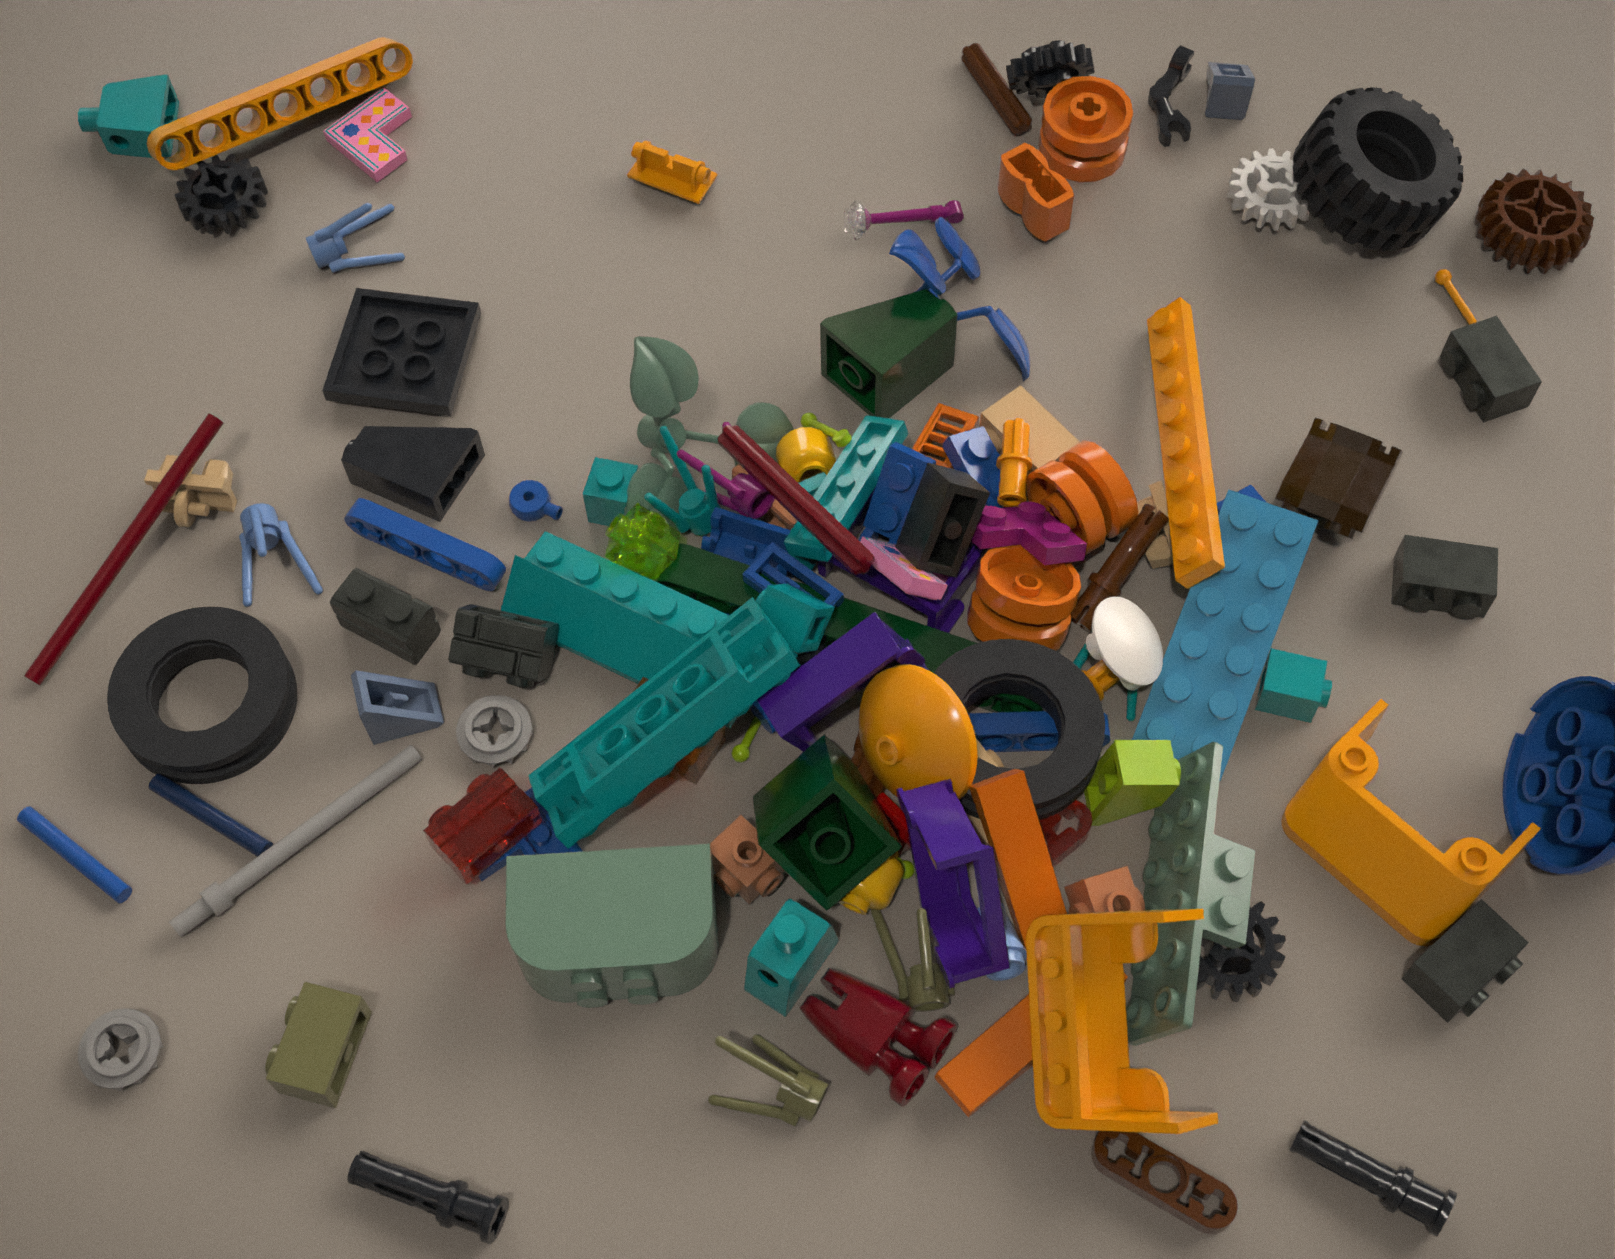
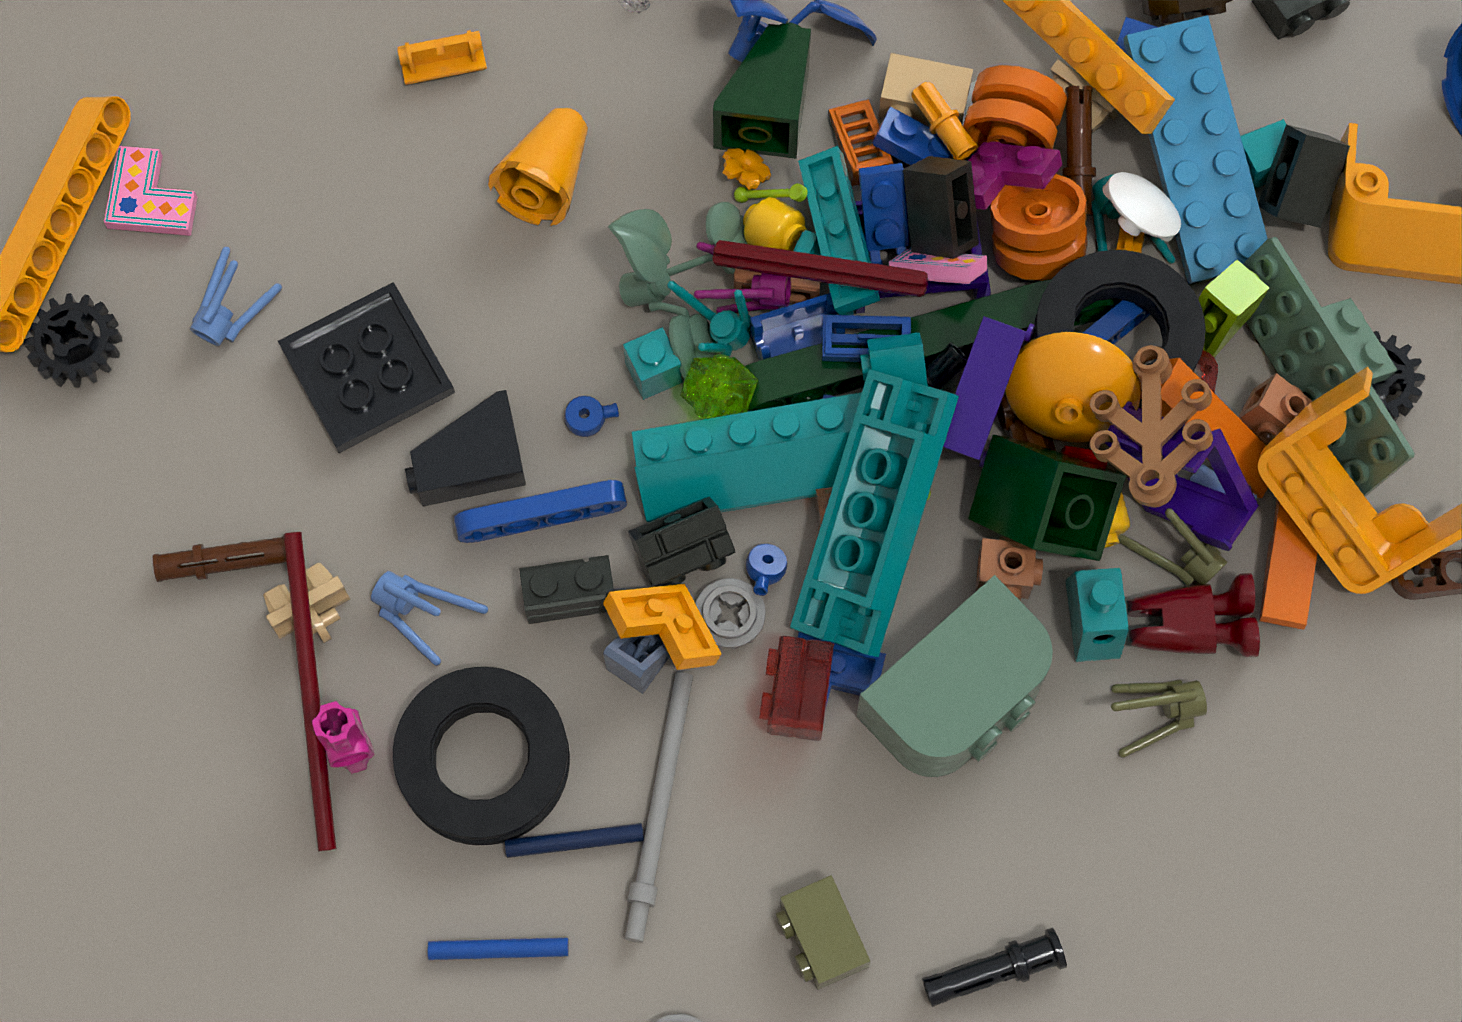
camera: 40 degrees left, 10 degrees up
(100, 591) = (343, 737): none -> dark pink piece
(132, 395) = (169, 565): none -> reddish brown pin
(439, 690) = (670, 614): none -> light orange plate
(557, 714) = (766, 566): none -> piece
(666, 292) = (542, 169): none -> light orange cone
(828, 400) = (745, 167): none -> light orange plant
(894, 850) = (1153, 431): none -> medium nougat plant
(1303, 720) = (1303, 176): none -> pearl dark grey brick

